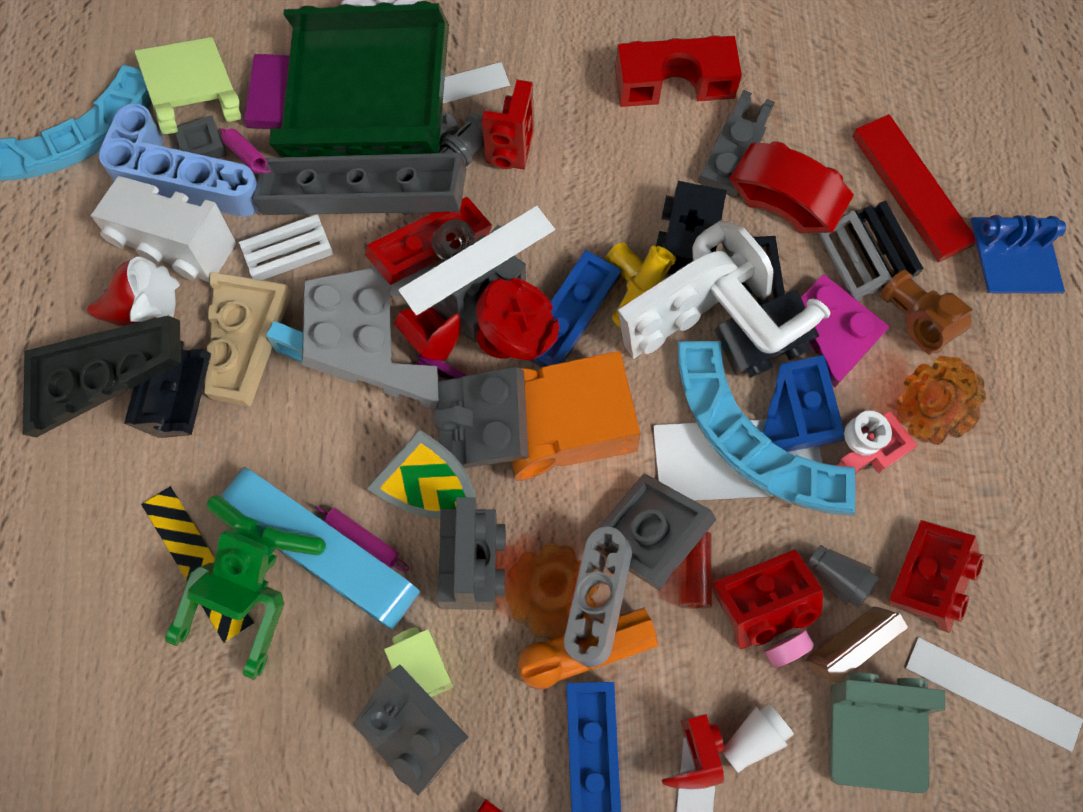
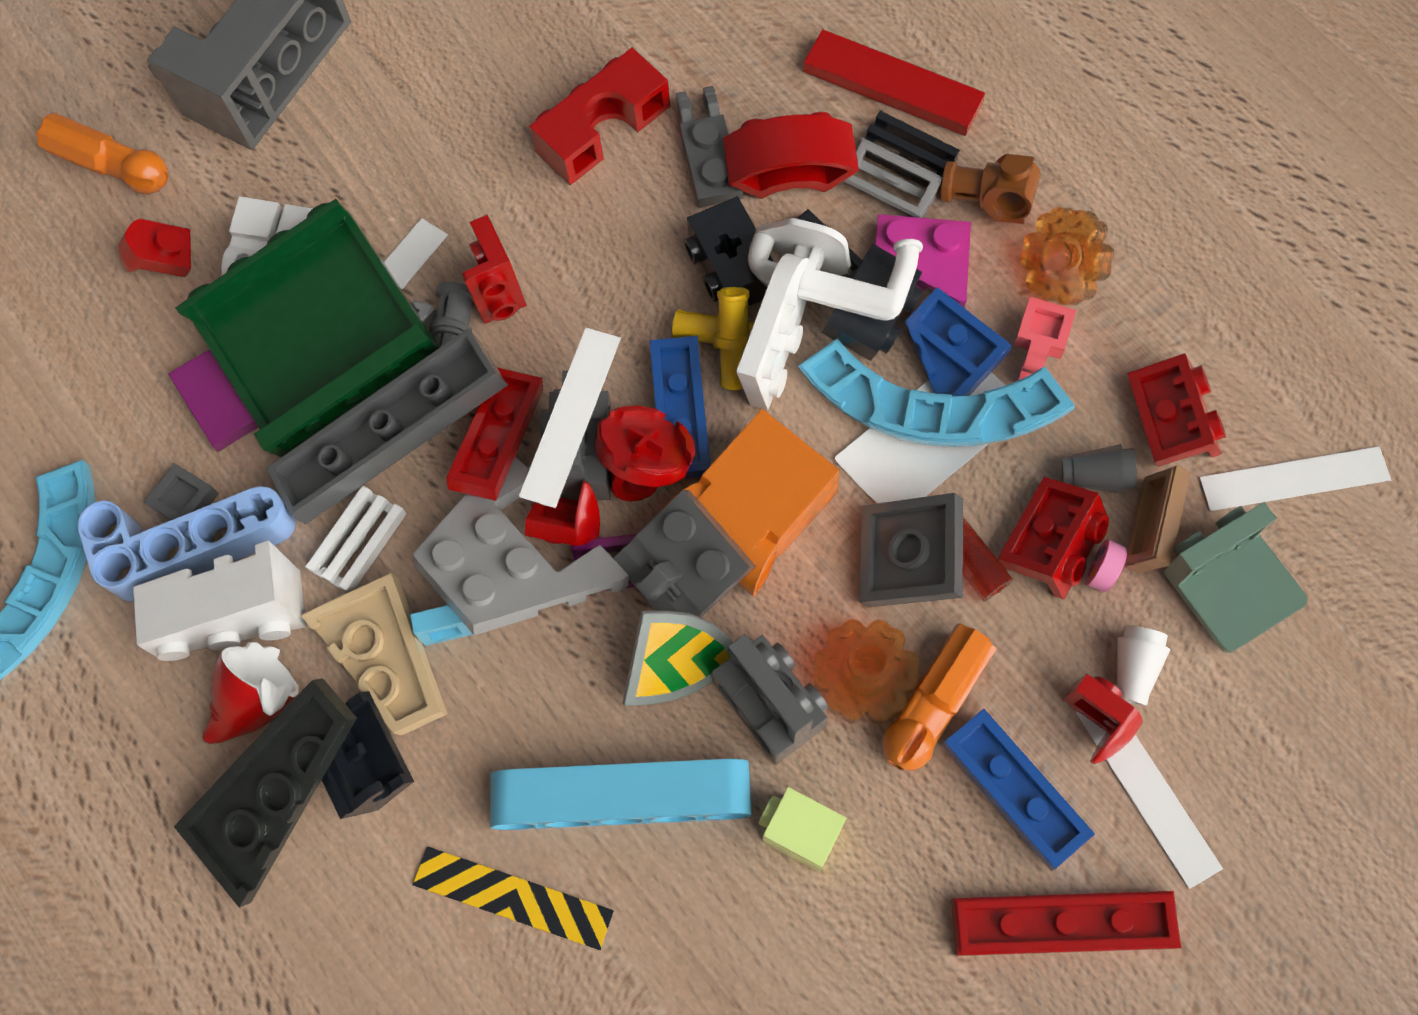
camera: 30 degrees left, 0 degrees up
(185, 76) = (114, 442): yellowish green flag -> none
(237, 578) = (576, 875): green piece -> none
(244, 150) = (240, 474): dark pink piece -> none
(362, 537) = (653, 753): dark pink piece -> none
(409, 730) = (844, 888): dark grey hinge -> none
(460, 229) = (529, 404): clear smoke bush -> none
(580, 628) = (946, 670): light grey beam -> none
(877, 425) = (1032, 316): white bush -> none
(1019, 253) = (1029, 80): blue hinge -> none

